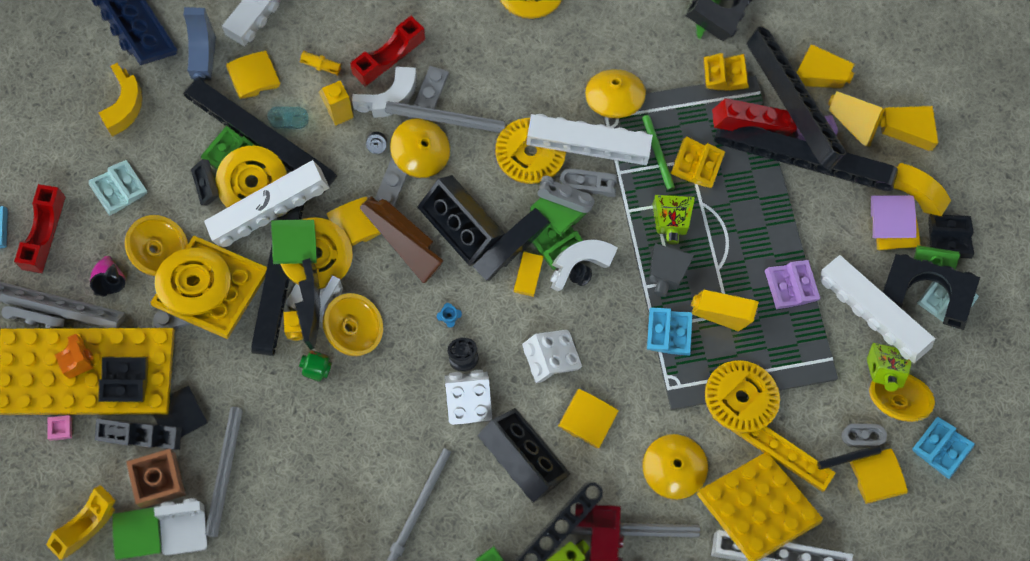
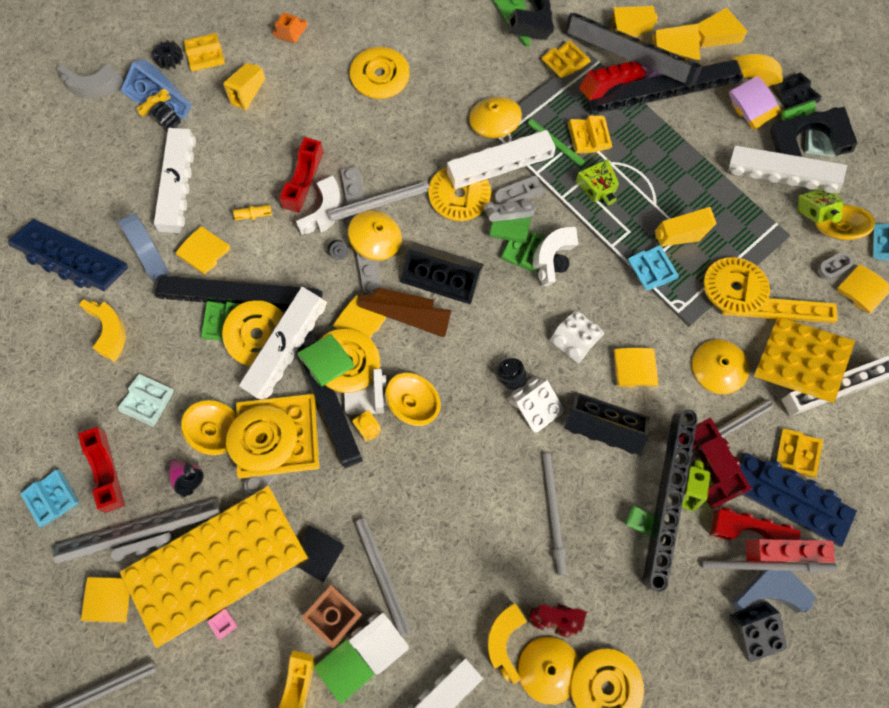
camera: 30 degrees left, 0 degrees up
(75, 357) = (203, 558): orange brick -> none
(123, 379) = (255, 551): black slope -> none
(138, 434) = (293, 589): black slope -> none
(204, 182) = (218, 355): black plate -> none
(288, 116) = (253, 267): clear light blue plate -> none
(309, 309) = (374, 405): black slope -> none
(315, 365) = (403, 448): green head -> none
(337, 102) = (287, 234): yellow slope -> none
(449, 309) = (479, 345): dark azure plate -> none
(511, 243) = (493, 269): black slope -> none
(528, 274) = (519, 285): yellow tile -> none
(668, 268) = (621, 222): dark grey torso -> none
(792, 284) = (715, 185): lavender slope -> none
(849, 457) = (838, 286): black bar -> none

